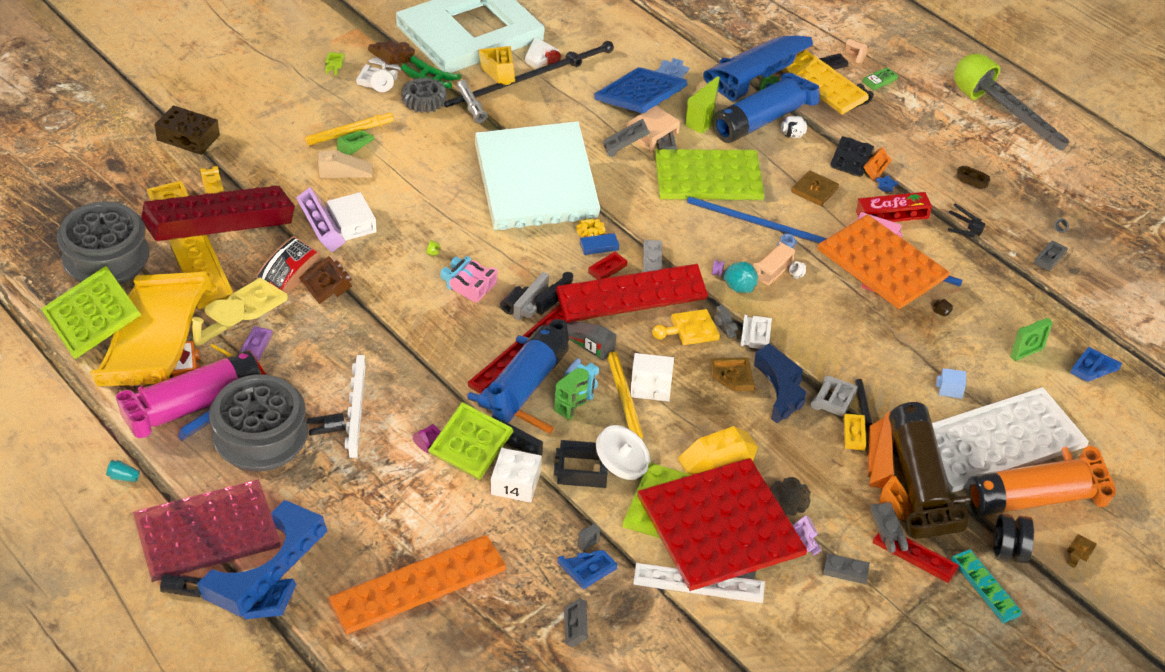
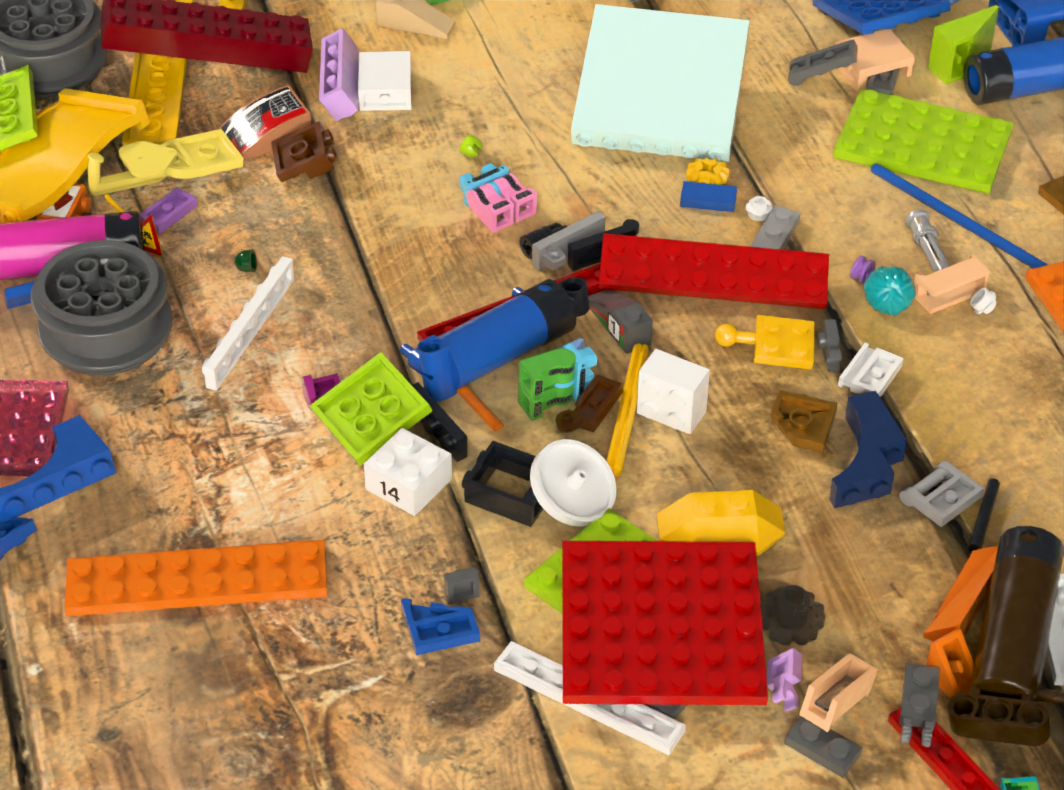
camera: 25 degrees right, 0 degrees up
(328, 364) = (246, 261): none -> dark green hinge
(331, 422) = (202, 335): black hinge -> none
(575, 622) = (376, 695): dark grey plate -> none
(604, 400) = (591, 406): none -> reddish brown hinge
(607, 266) = (702, 227): red plate -> none
(634, 244) = (759, 208): none -> white plate
(743, 237) = (919, 239): none -> light grey pin
(788, 240) = (992, 259): medium blue plate -> none
(842, 534) = (837, 691): none -> light nougat window
(854, 432) = (944, 552): yellow plate -> none

